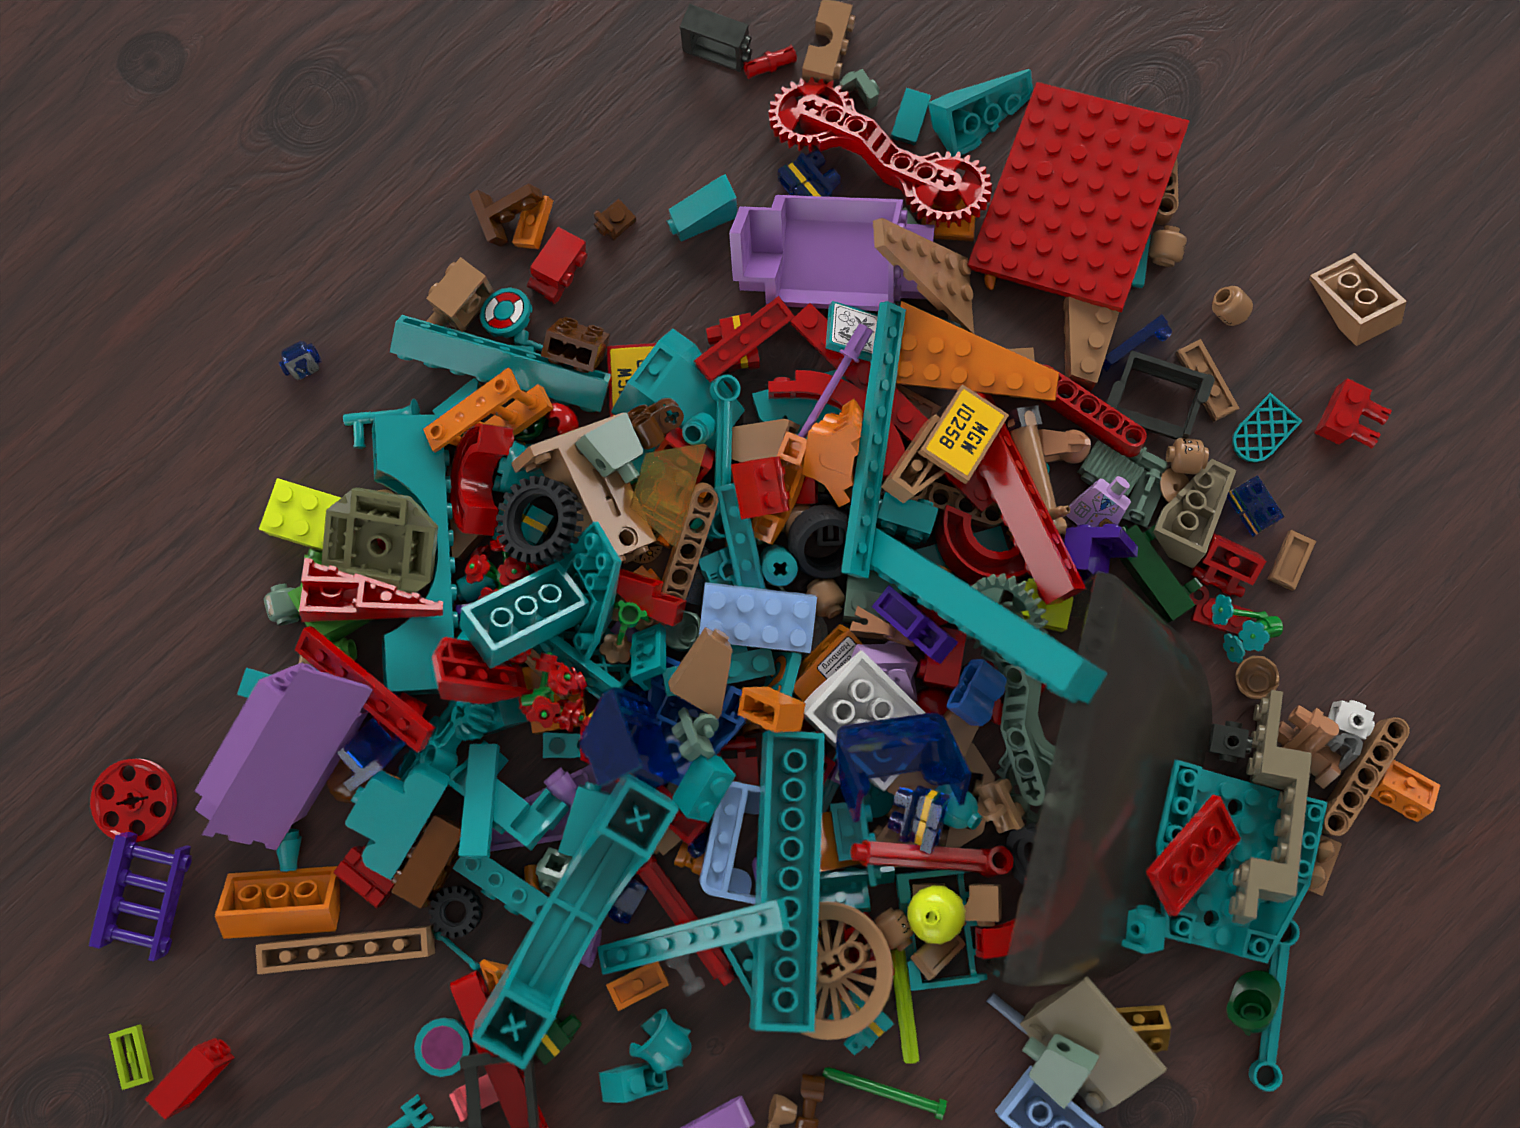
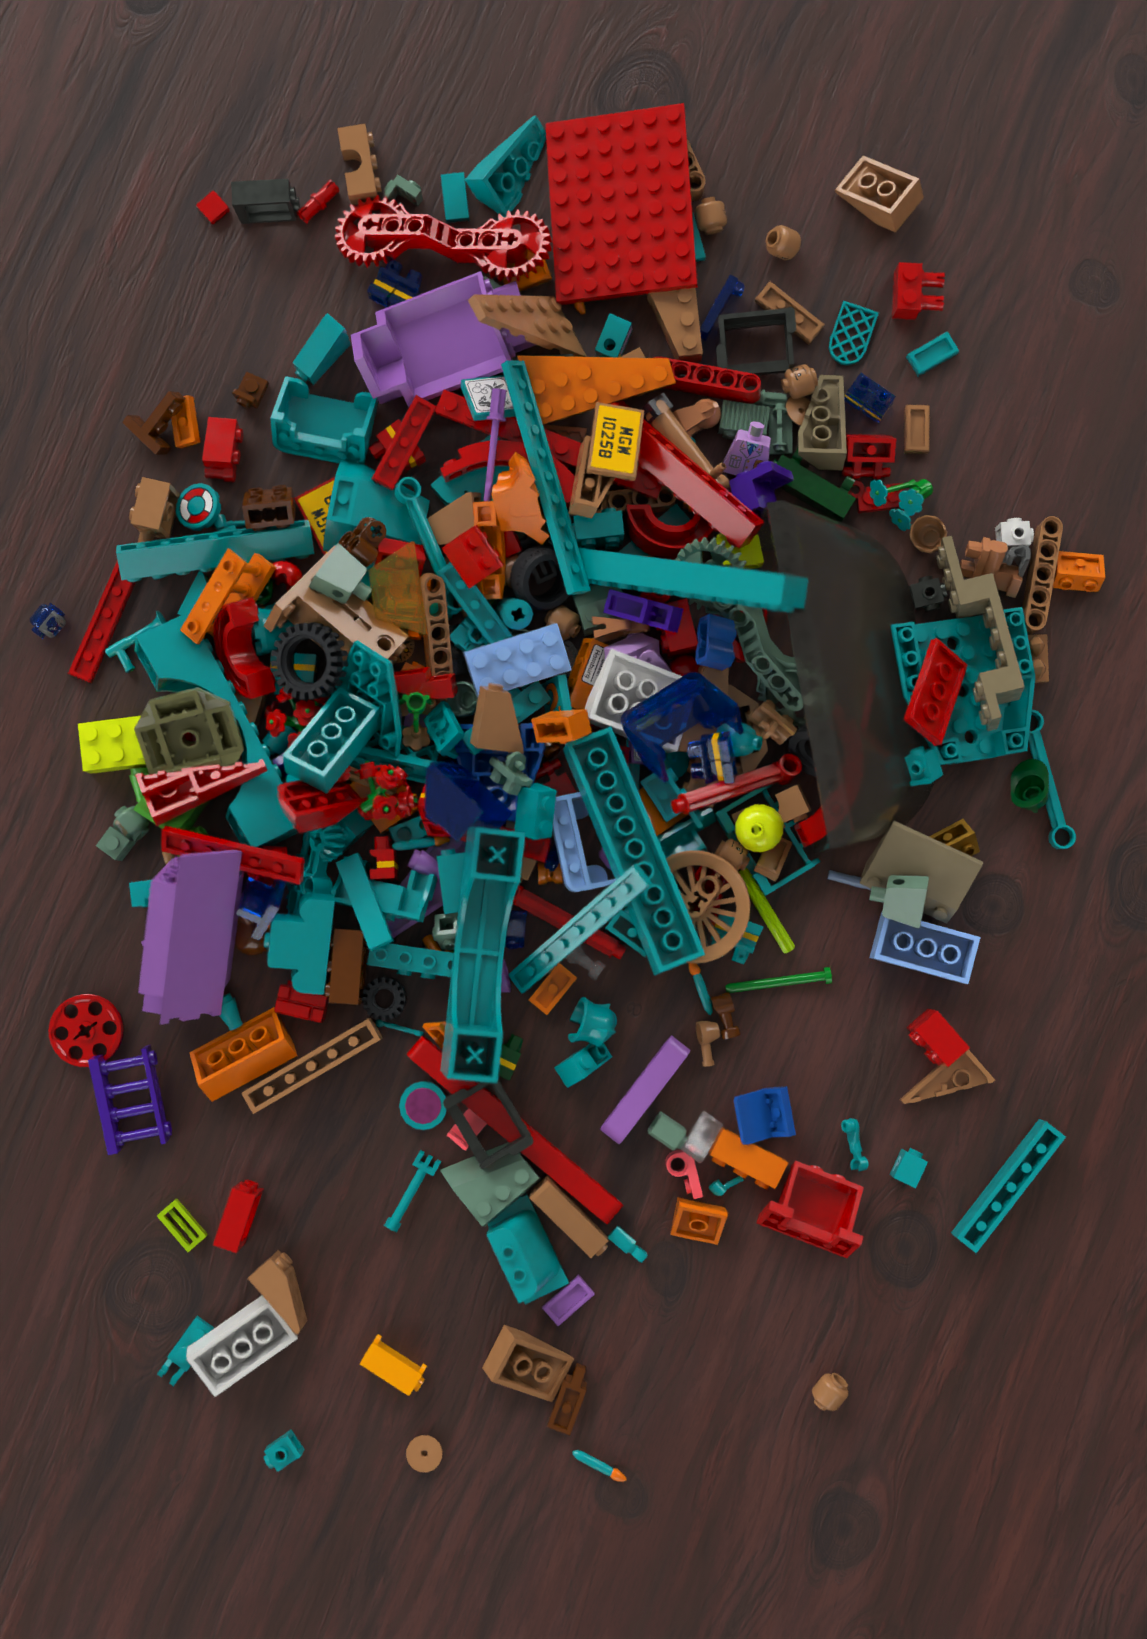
camera: 30 degrees left, 5 degrees up
(256, 620) = (115, 844): none -> sand green brick
(350, 392) = (101, 627): none -> red tile
(525, 765) = (387, 861): none -> red hips
(565, 762) = (420, 843): none -> teal piece
(662, 23) = (213, 207): none -> red tile
(670, 285) = (322, 425): none -> teal windscreen
(699, 429) = (401, 531): teal brick -> none
(797, 1061) = (701, 987): none -> teal piece
(1014, 322) = (616, 333): none -> teal torso
(1342, 488) = (932, 353): none -> teal tile

